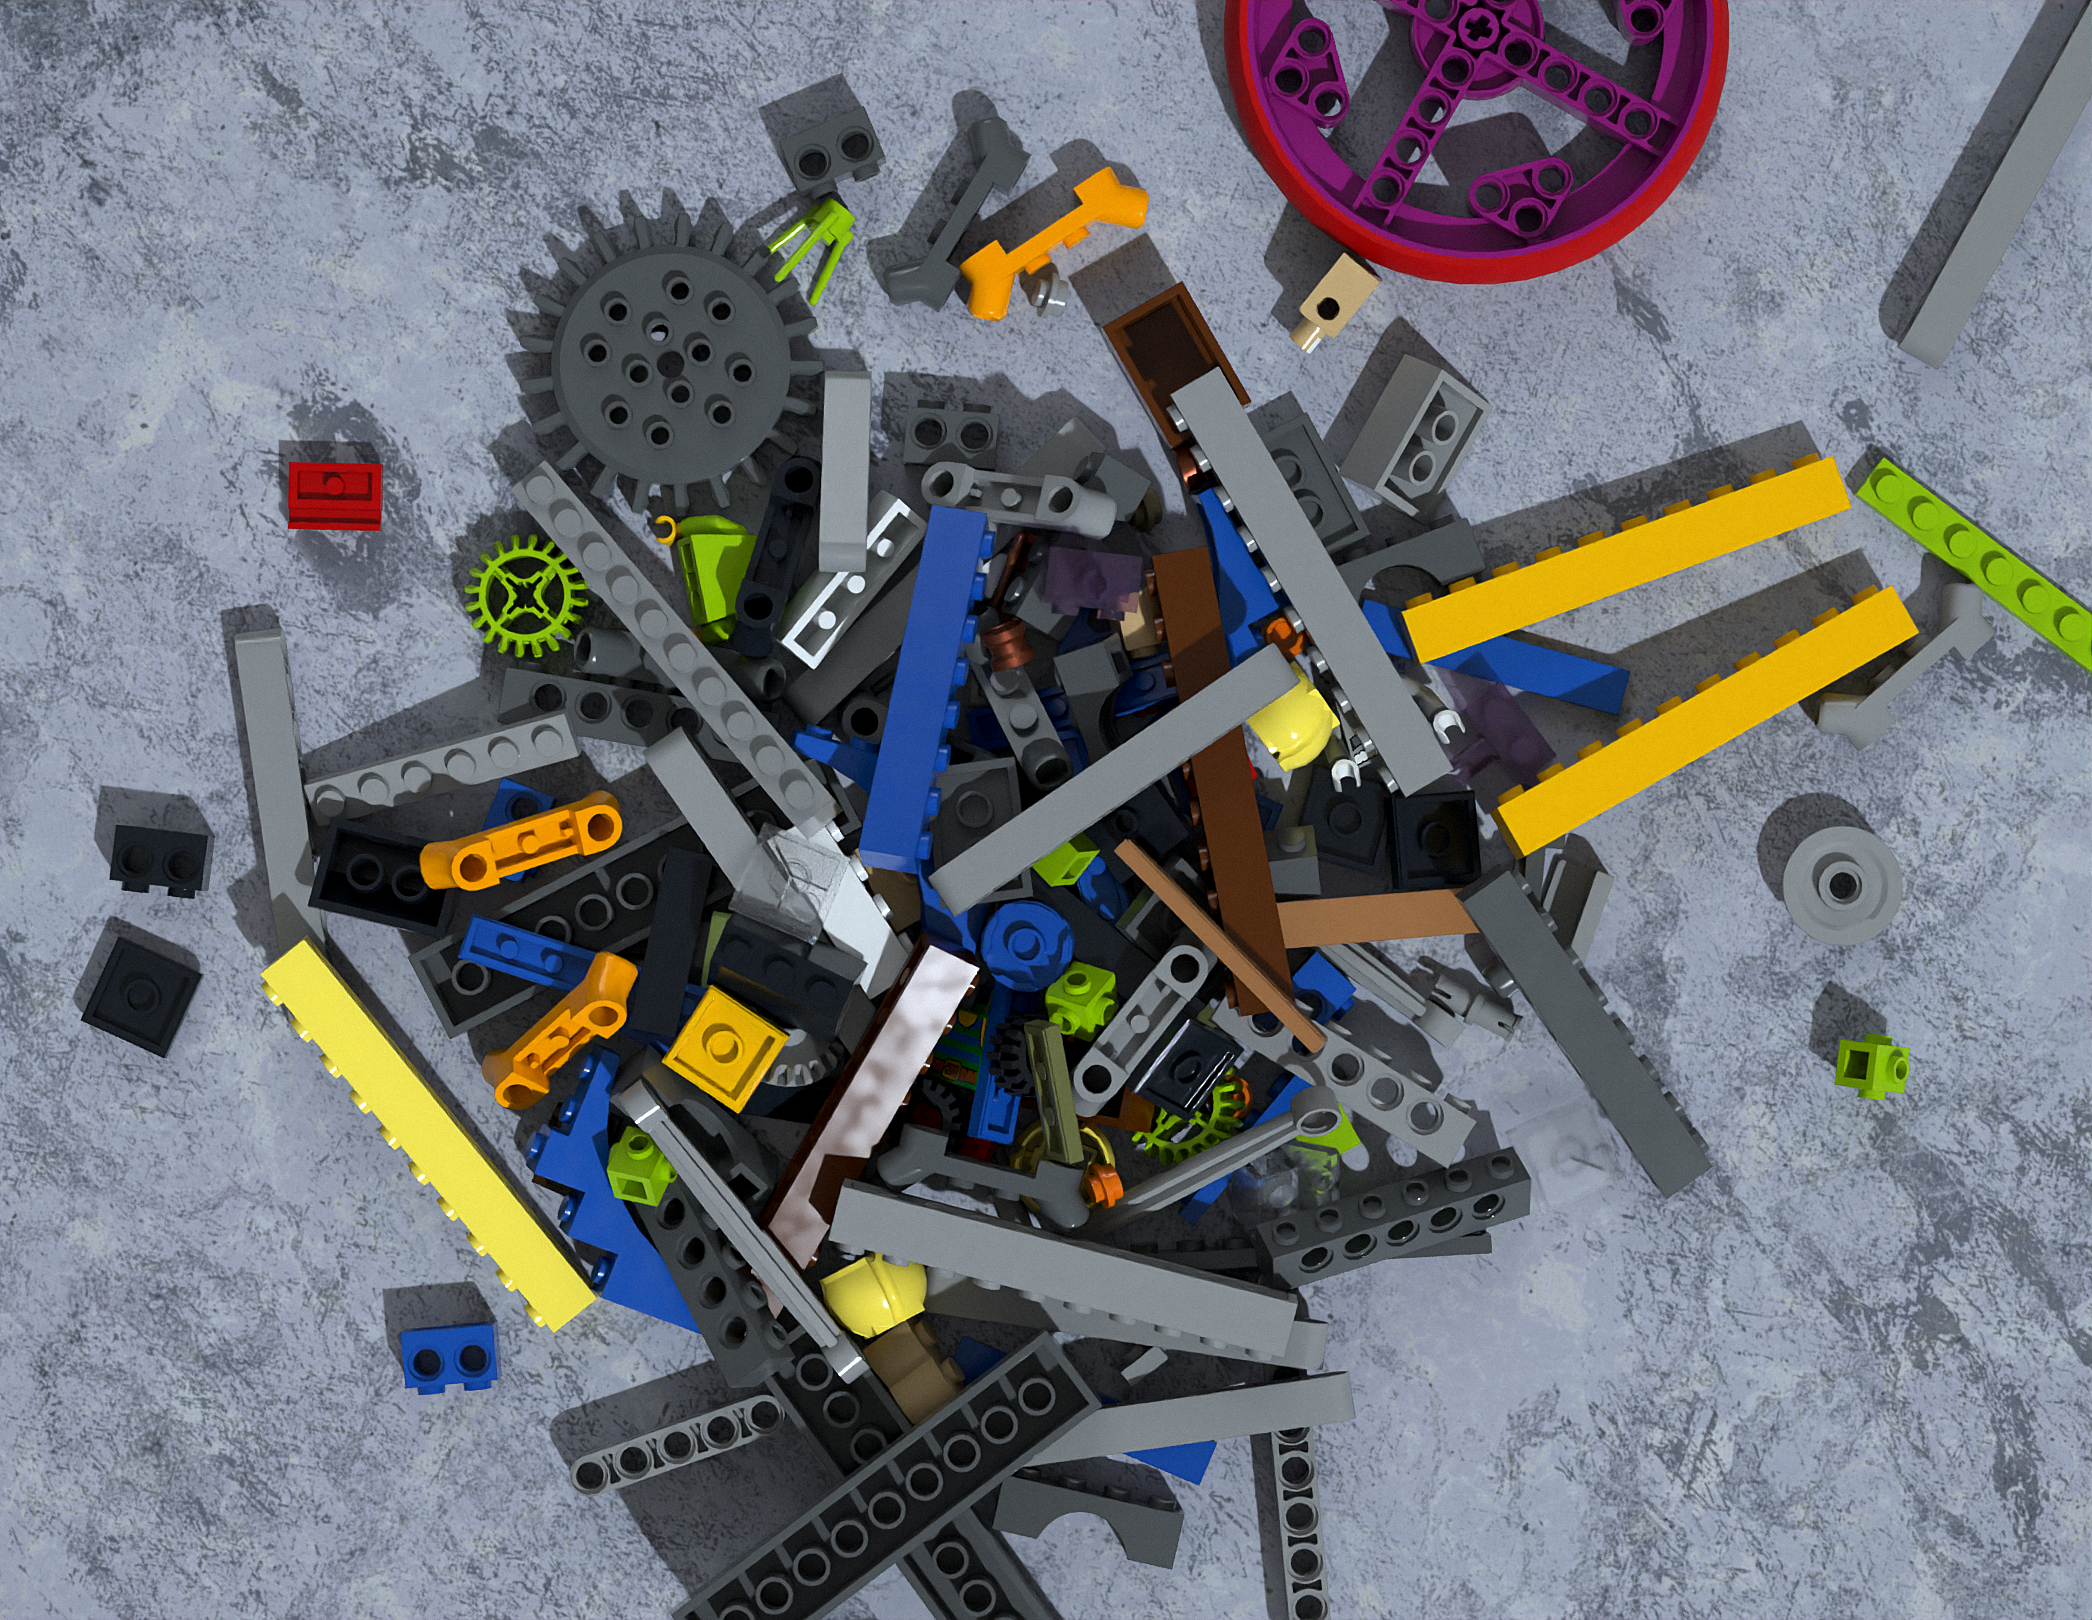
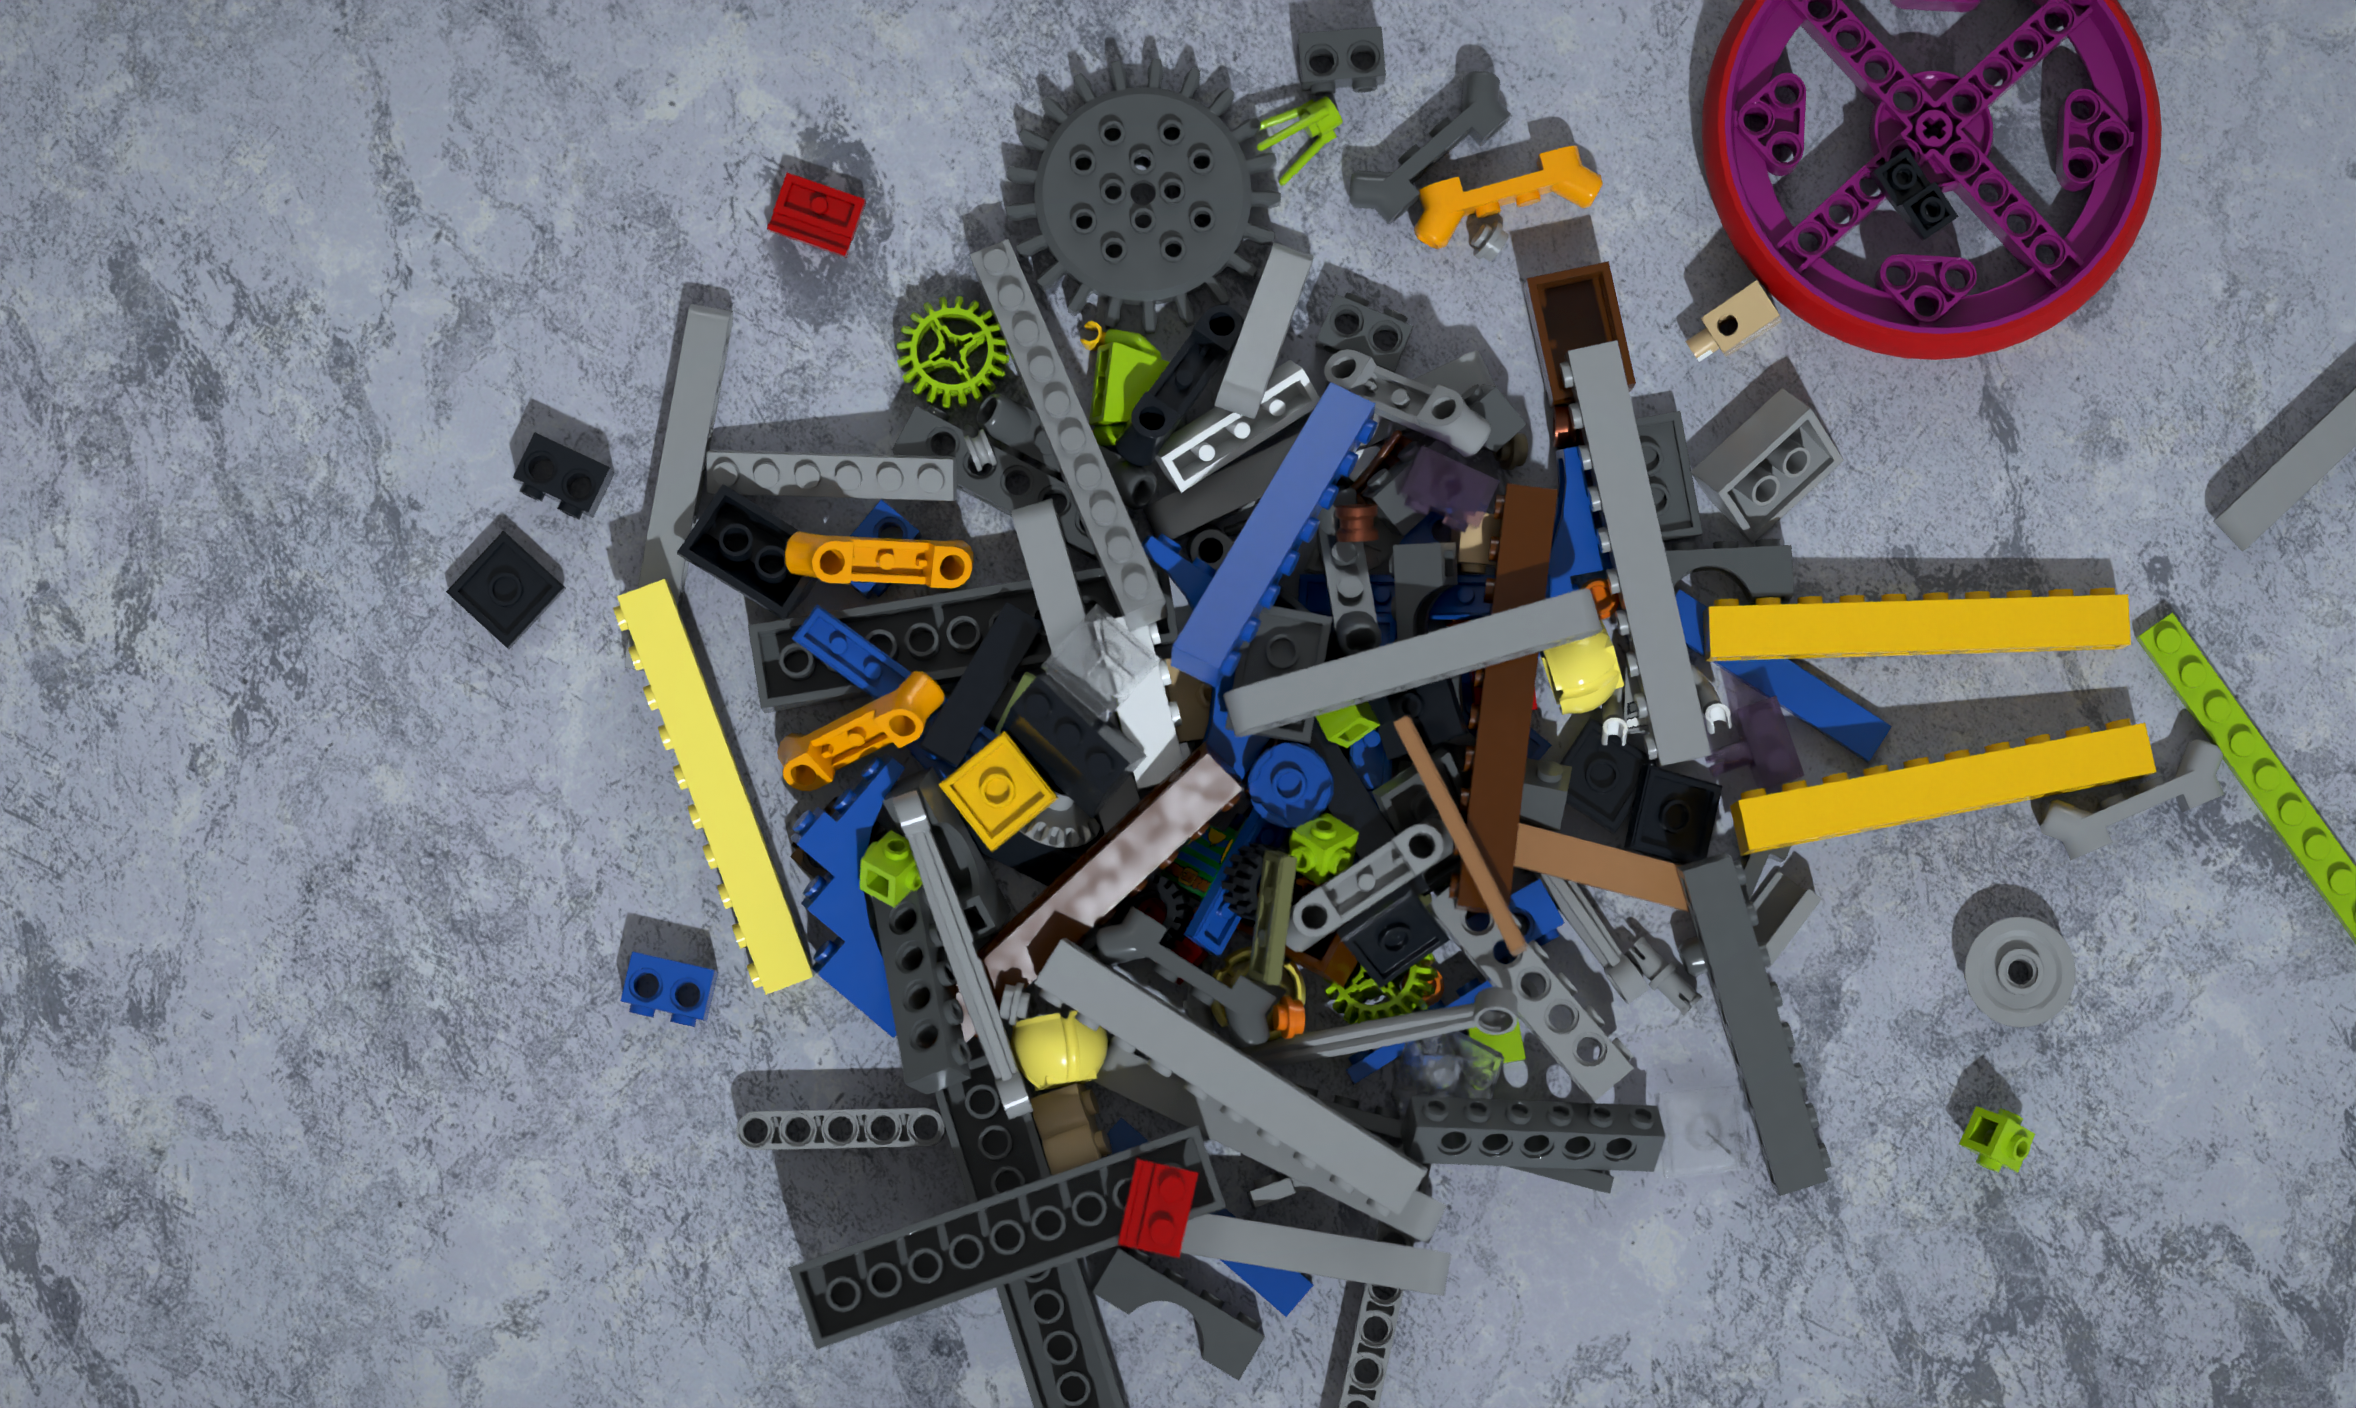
camera: 20 degrees right, 5 degrees down
(589, 694) = (980, 450): none -> light grey bush
(815, 1262) = (1014, 1003): none -> light grey plate
(1032, 1431) = (1158, 1208): none -> red plate
(1479, 109) = (1912, 195): none -> black slope

